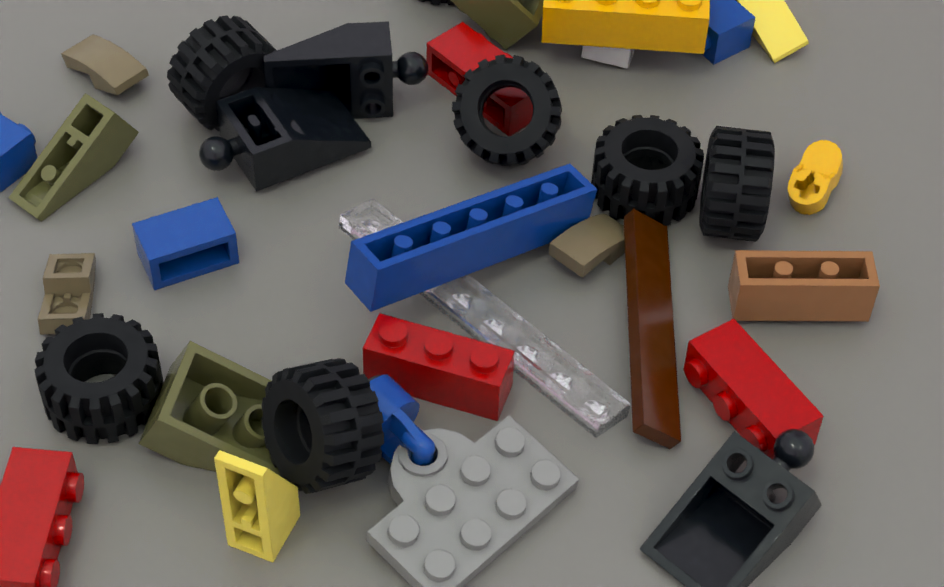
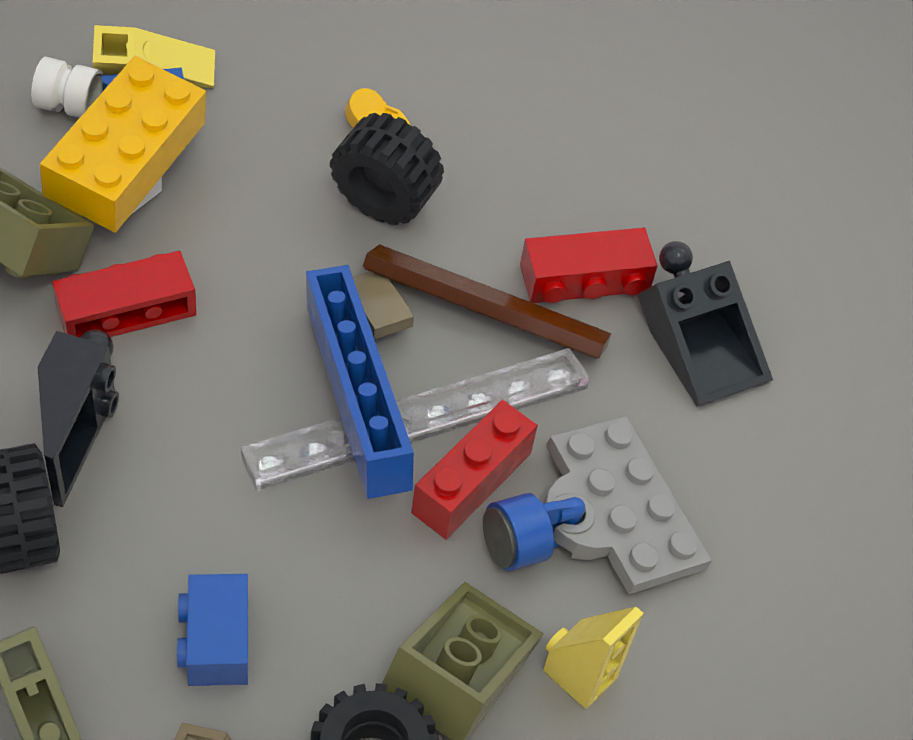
camera: 75 degrees left, 5 degrees up
(281, 134) = (111, 495): black slope -> none
(322, 425) = (534, 572): black tyre -> none
(486, 80) = (181, 299): black tyre -> none
(647, 168) = (319, 201): black tyre -> none
(803, 285) = (503, 182): medium nougat brick -> none

